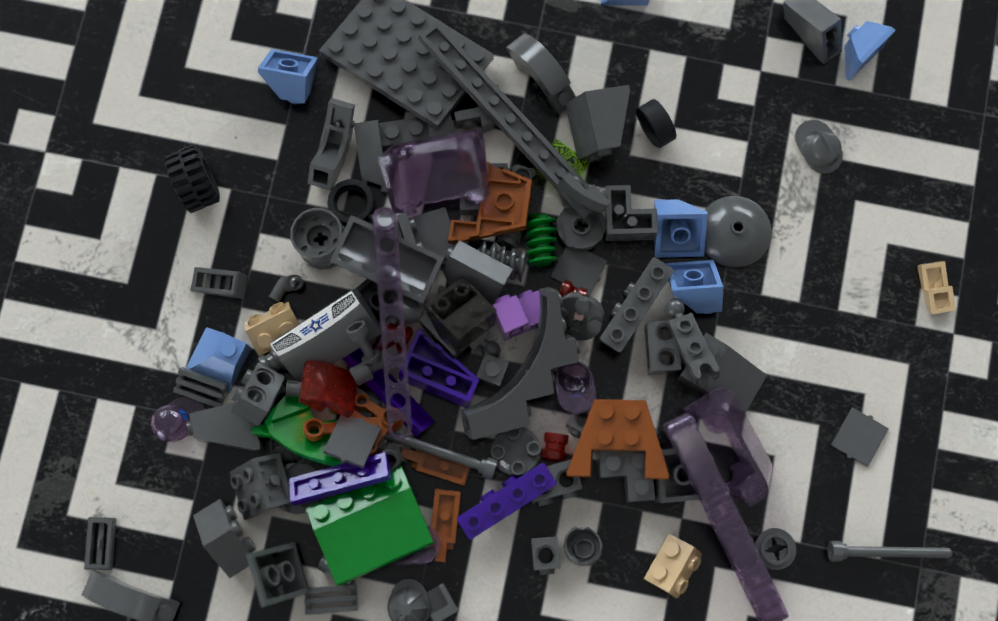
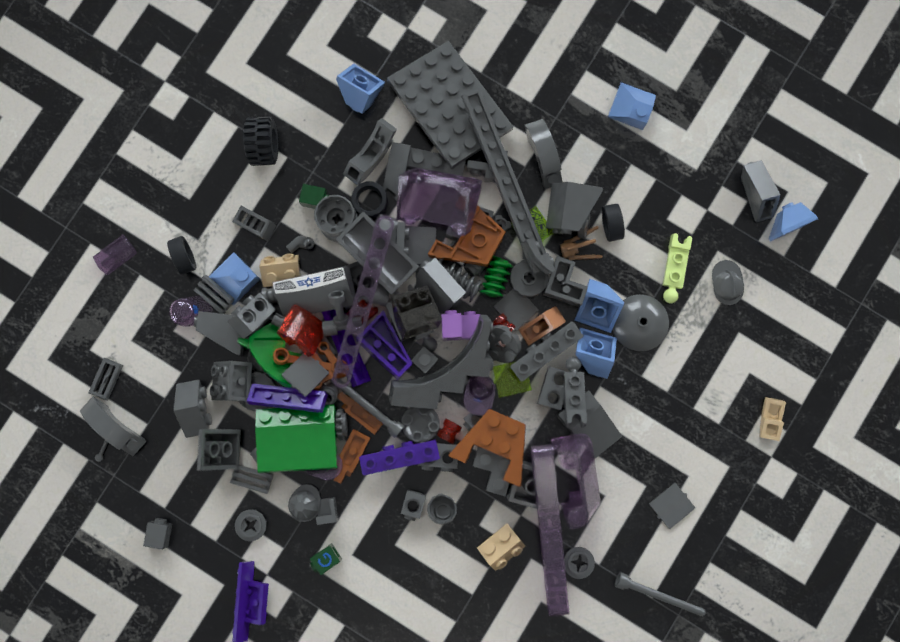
camera: 20 degrees right, 5 degrees up
(57, 385) = (114, 255): none -> clear purple slope
(143, 352) = (181, 255): none -> black tyre
(279, 223) = (311, 195): none -> dark green brick
(419, 488) = (341, 424): none -> dark grey gear
(604, 360) = (508, 382): none -> clear neon green piece
(616, 172) = (569, 248): none -> medium nougat plant
(618, 277) = (542, 325): none -> nougat slope
(624, 148) = (584, 229): none -> dark grey tile
(750, 149) = (675, 267): none -> yellowish green plate

